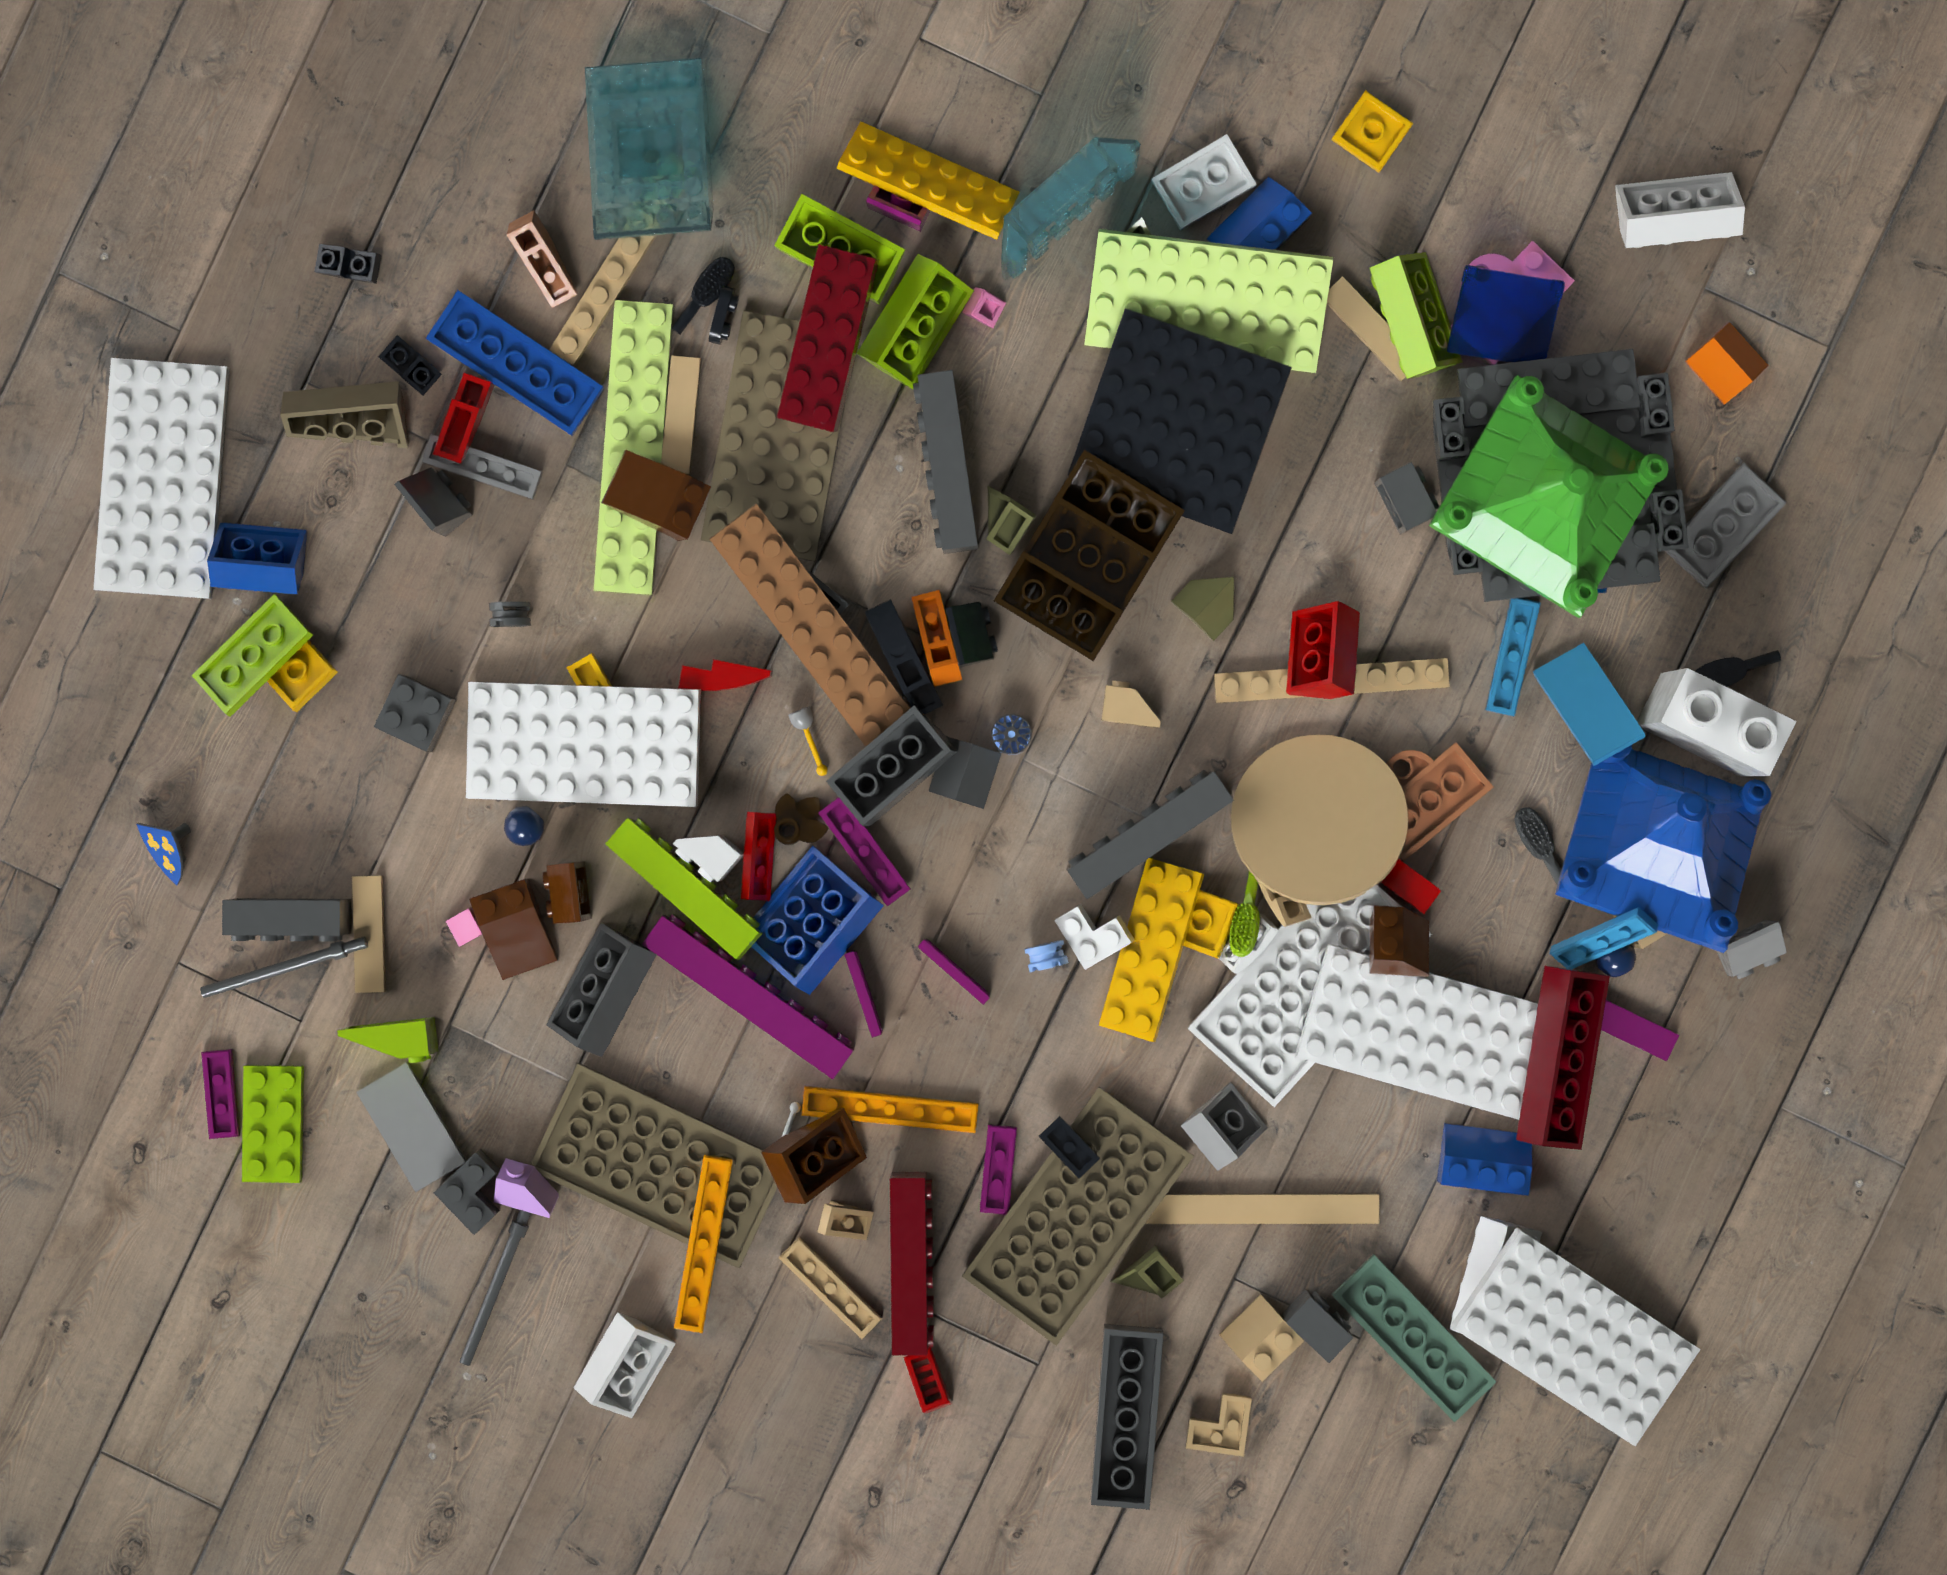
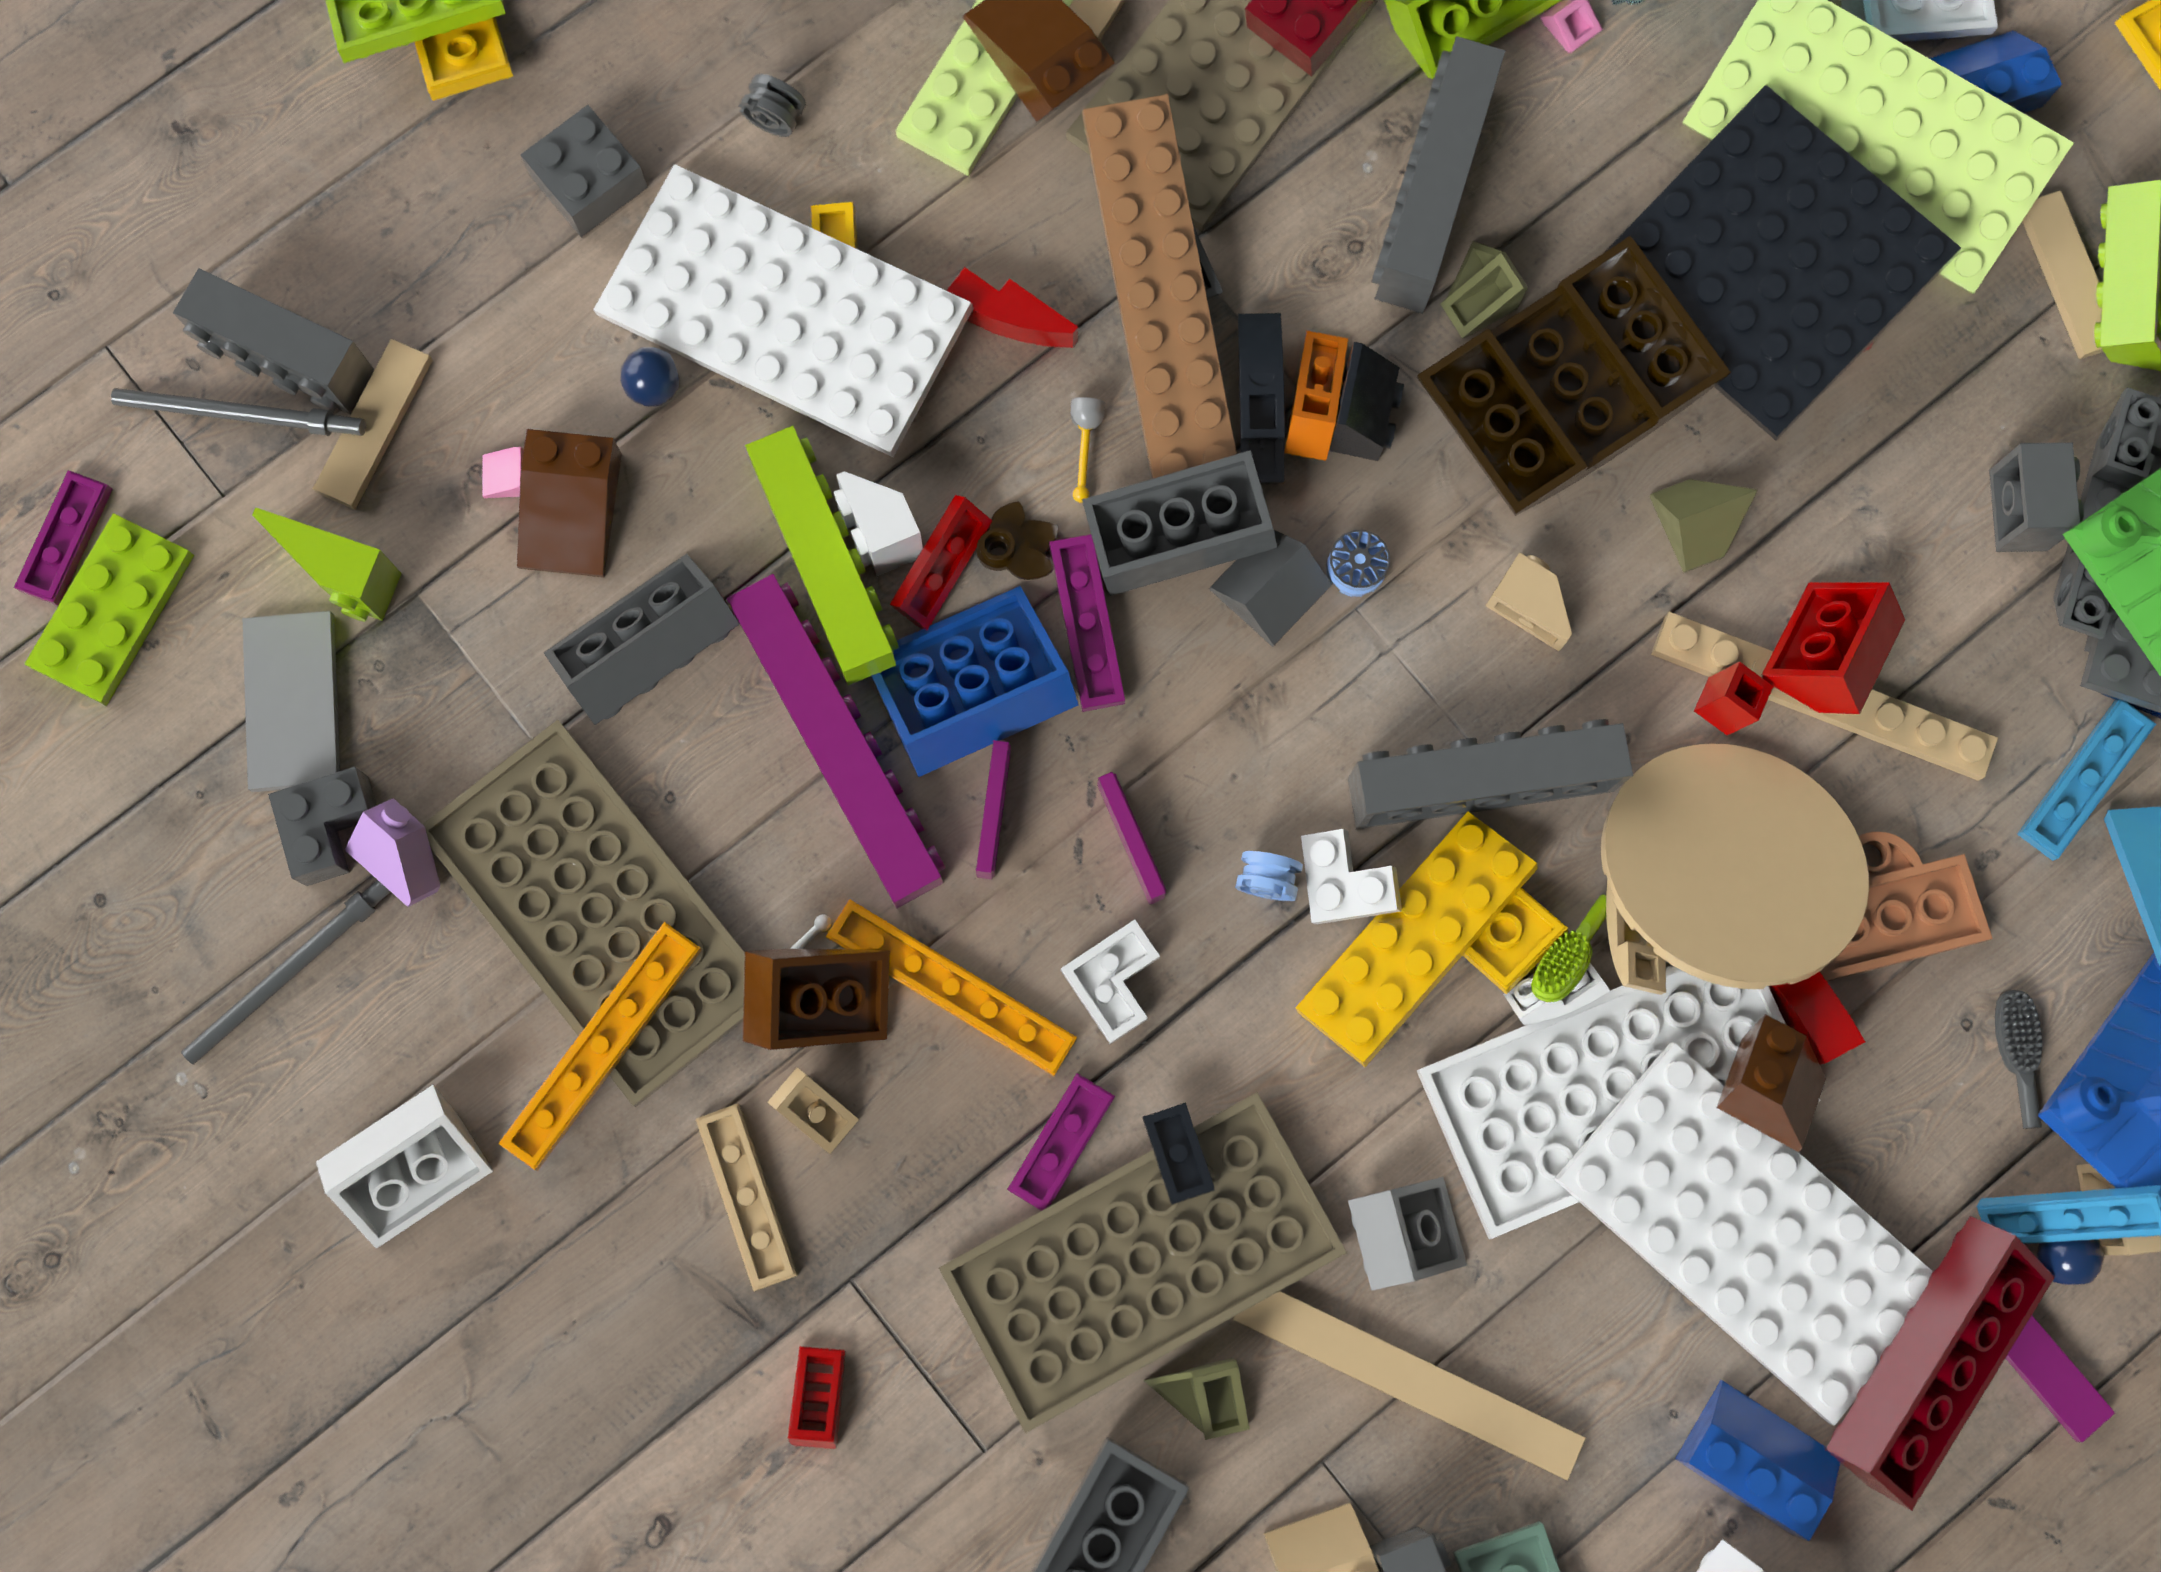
camera: 20 degrees right, 10 degrees down
(166, 848) = (171, 188): shield -> none
(568, 892) = (665, 484): reddish brown slope -> none
(909, 1263) = (874, 1212): dark red brick -> none
(975, 1063) = (1100, 979): none -> white plate
(1276, 714) = (1733, 698): none -> red brick

